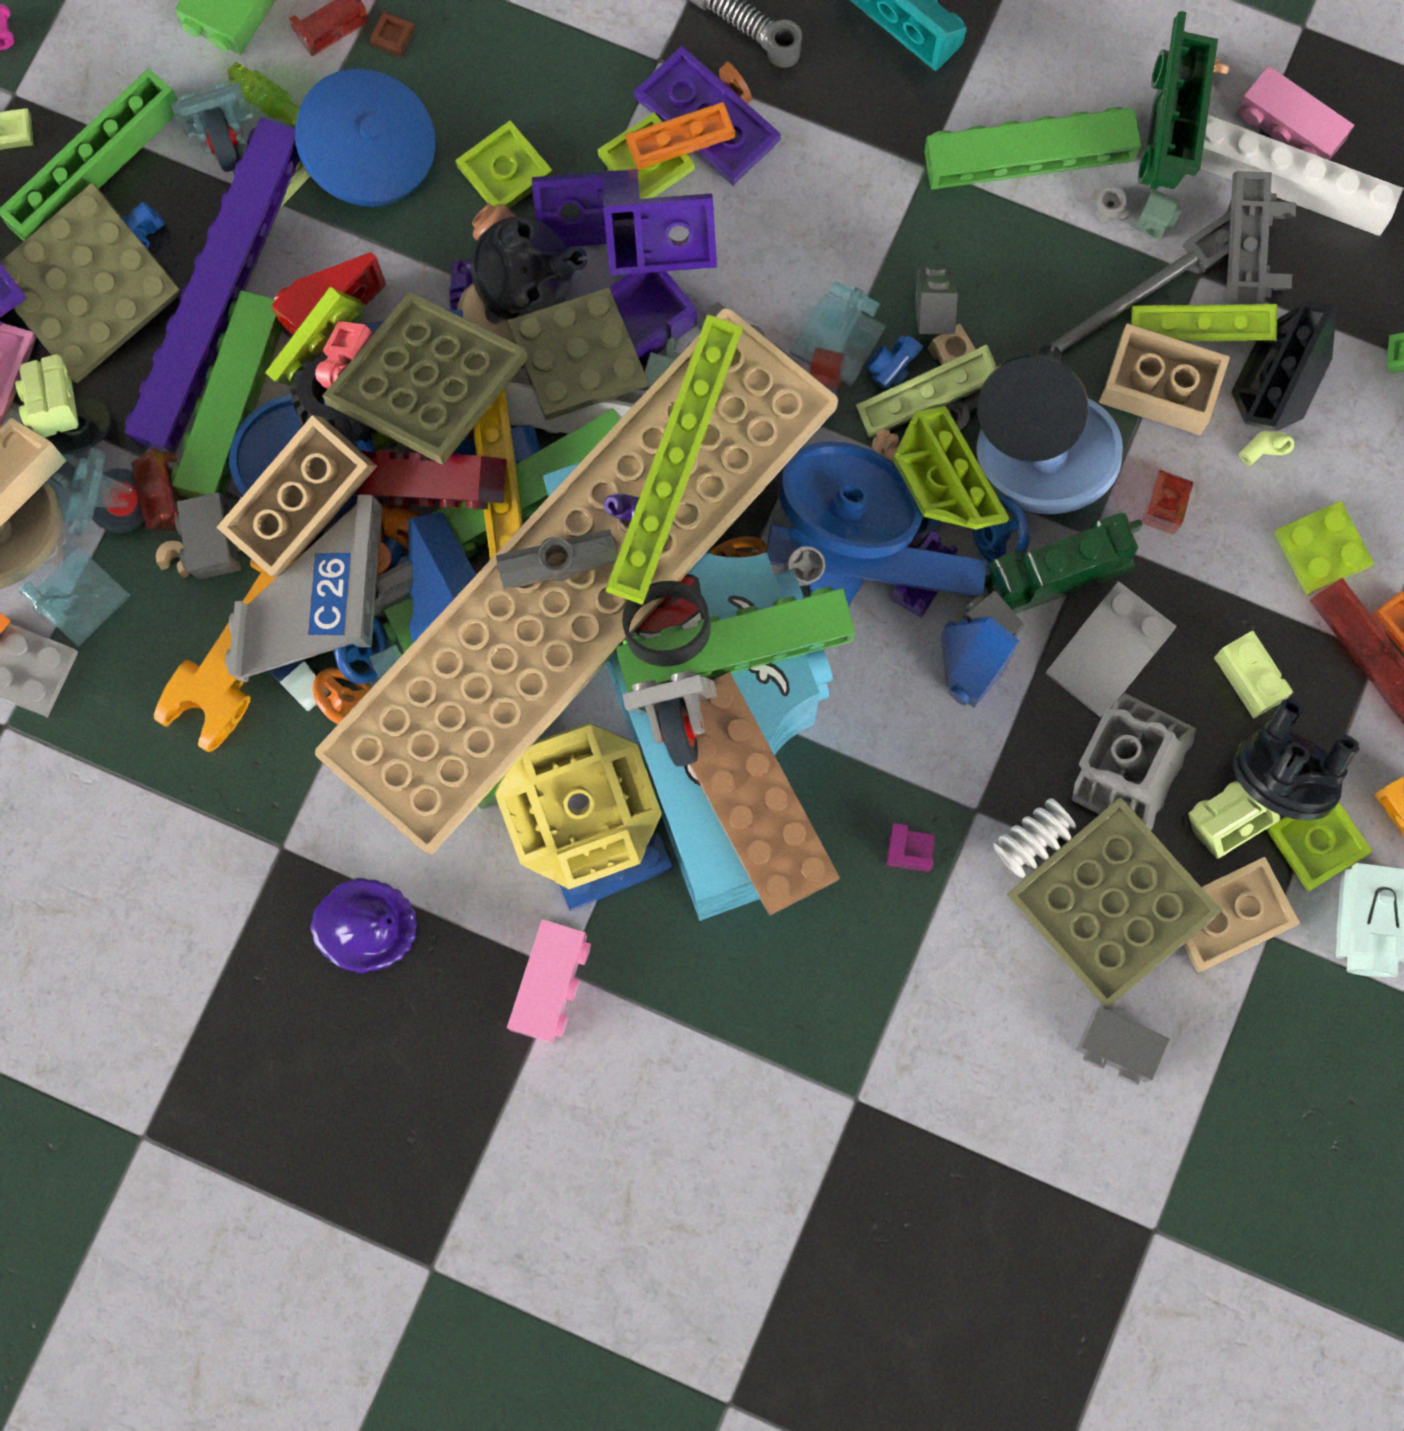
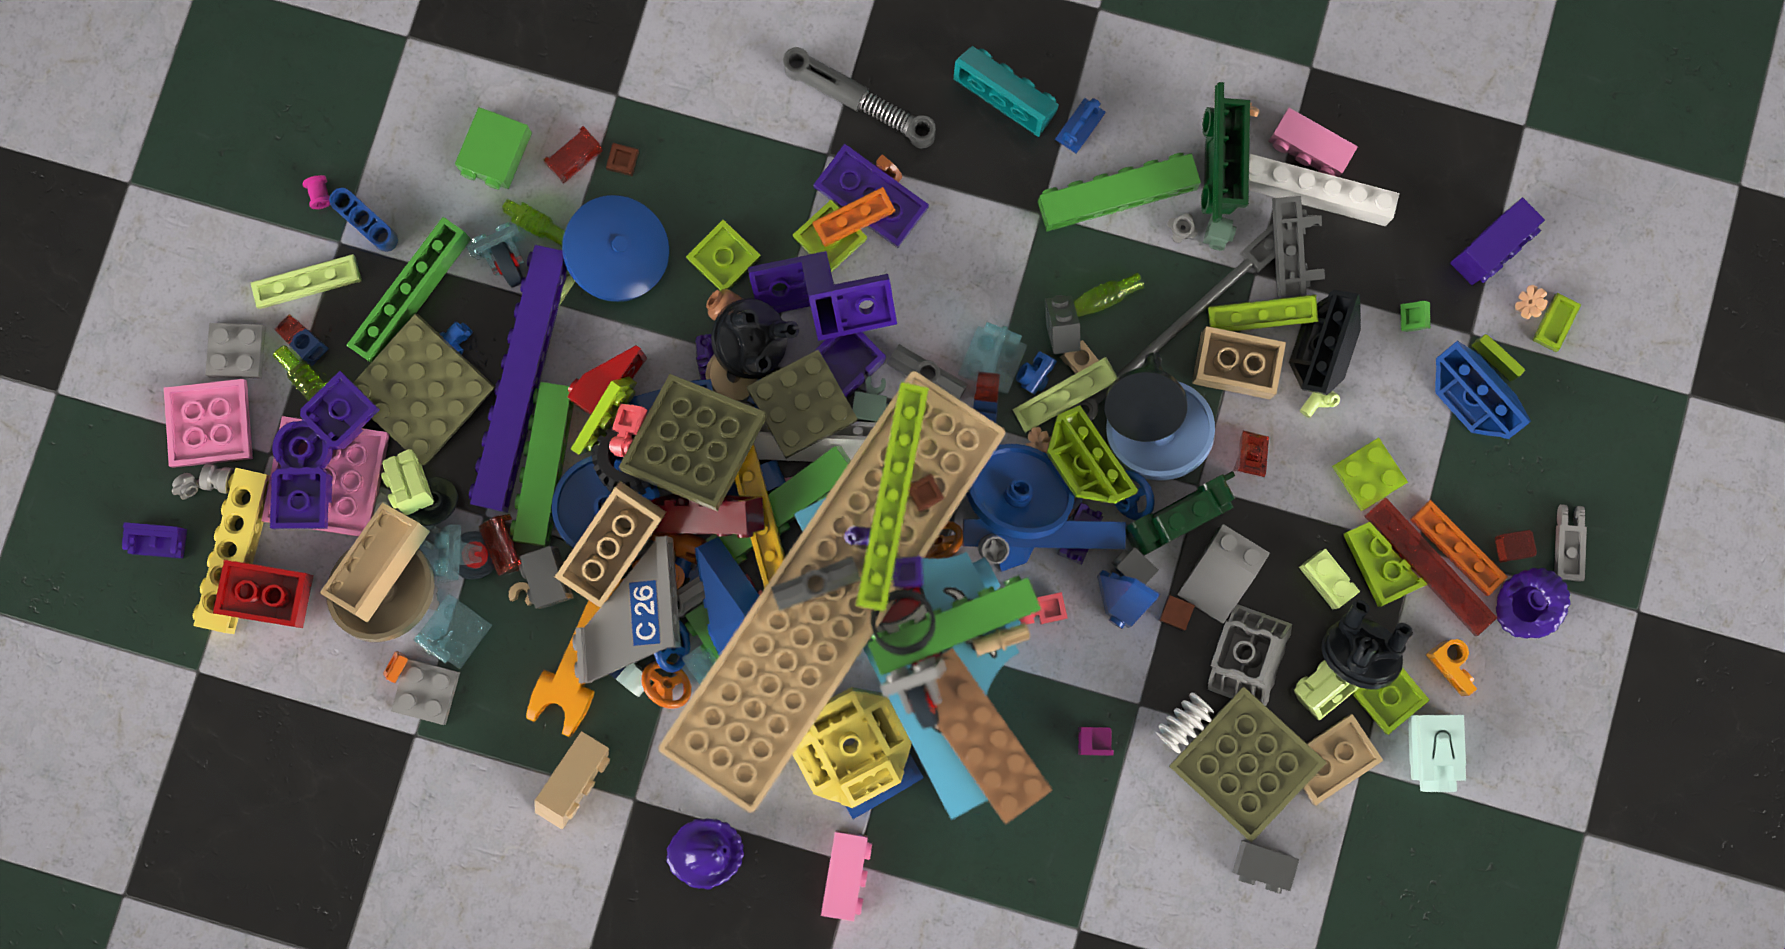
camera: 10 degrees left, 5 degrees up
(41, 54) = (356, 210): none -> blue beam
(199, 807) = (571, 780): none -> tan wedge
(682, 561) = (908, 572): none -> dark purple plate
(720, 463) = (925, 493): none -> copper tile
(797, 670) = (1001, 639): none -> tan axle
(870, 666) = (1051, 610): none -> coral plate
(993, 60) = (1081, 125): none -> blue hinge
(1000, 275) = (1106, 295): none -> clear neon green hinge
(1042, 695) = (1176, 612): none -> copper tile
(1325, 669) = (1381, 567): none -> lime wing

